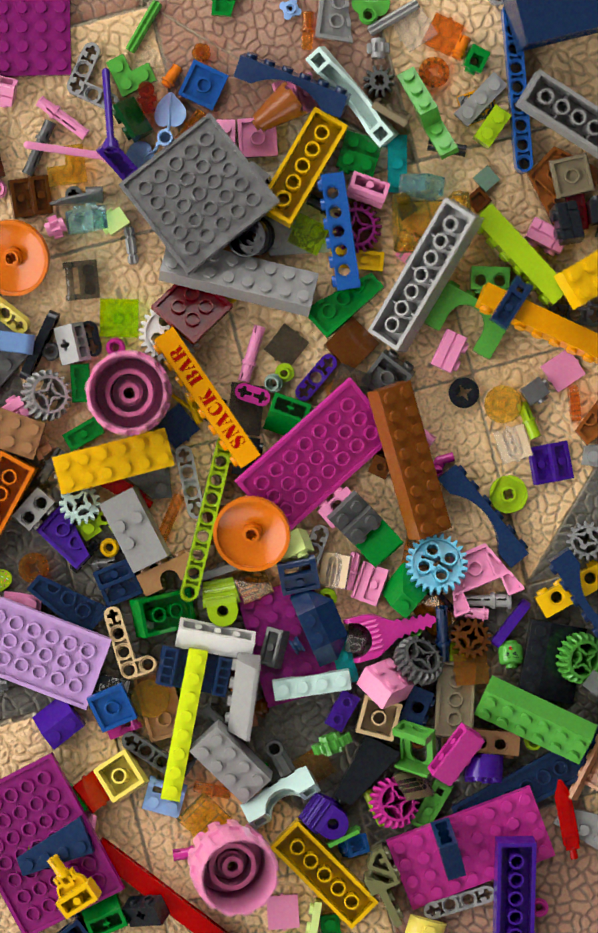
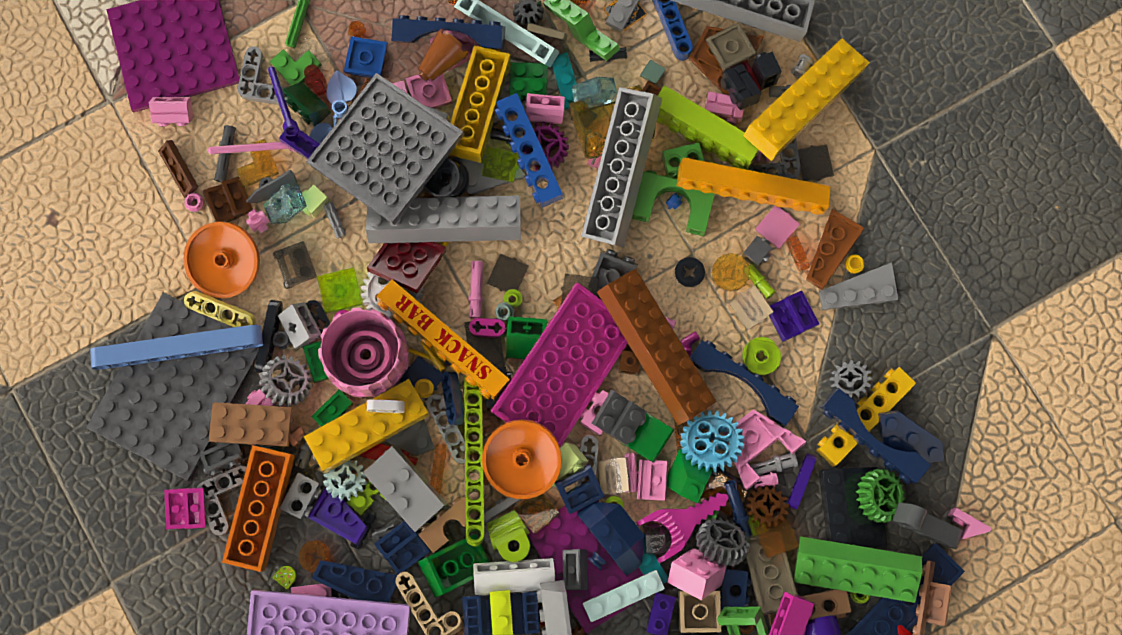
camera: 15 degrees left, 10 degrees down
(62, 117) = (233, 117): bright pink pin -> none
(105, 552) = (381, 510): yellow plate -> none
(136, 450) = (385, 406): none -> white beam
(172, 75) = (333, 61): orange pin -> none
(176, 437) = (424, 388): none -> yellow plate
(202, 447) = (452, 398): none -> dark blue beam
(302, 385) = (554, 285): dark purple beam -> none
(339, 307) = (549, 223): green wing -> none
(351, 343) = (569, 254): reddish brown slope -> none
(365, 260) = (564, 174): yellow plate -> none
(449, 351) = (664, 236): bright pink brick -> none
(469, 317) = (674, 201): none -> blue plate
(491, 126) = (644, 23): lime brick -> none
(510, 654) = (811, 512): bright green head -> none
(511, 303) = (710, 170): dark blue plate -> none

